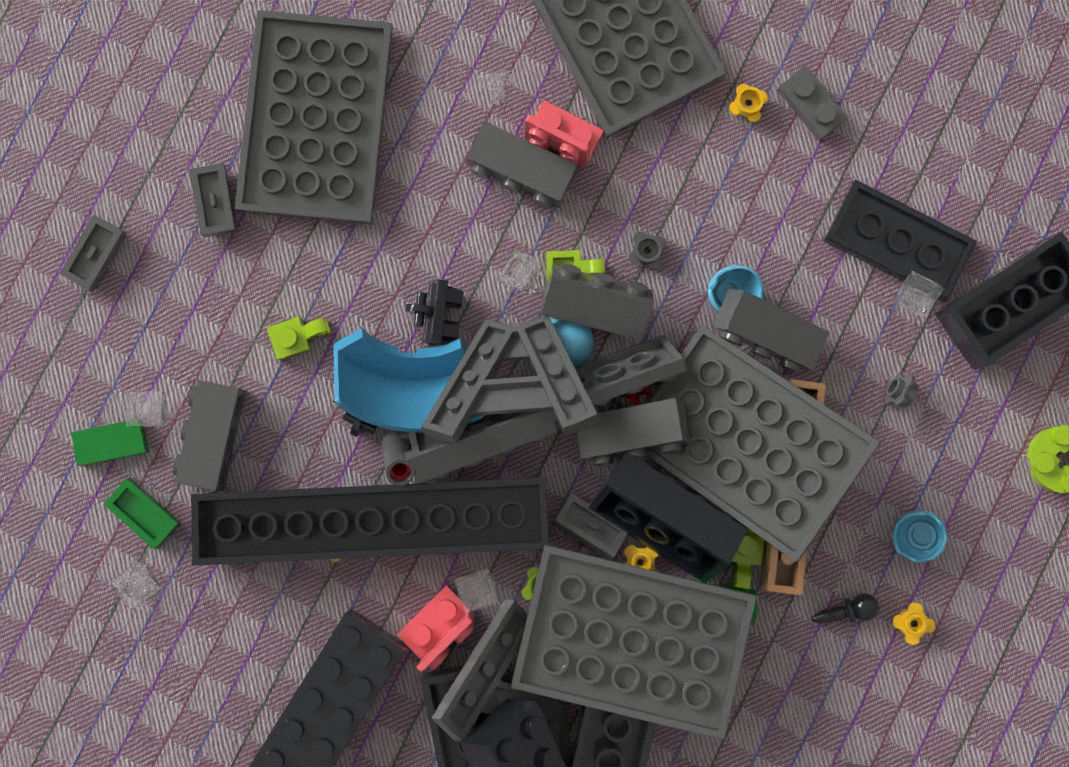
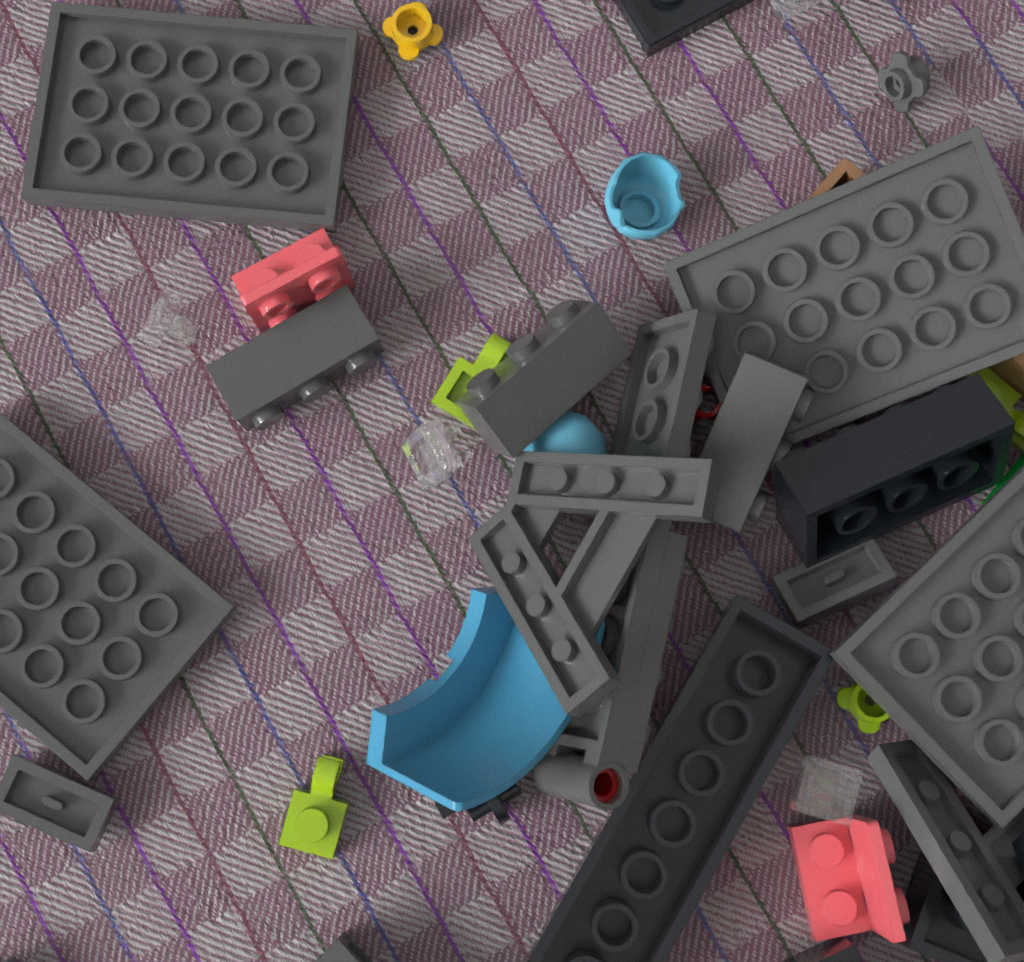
camera: 55 degrees left, 5 degrees down
(439, 297) = (409, 603): black hips -> none
(644, 241) = (515, 259): dark grey plate -> none
(646, 554) = (904, 548): yellow plate -> none
(770, 331) = (726, 185): dark grey brick -> none

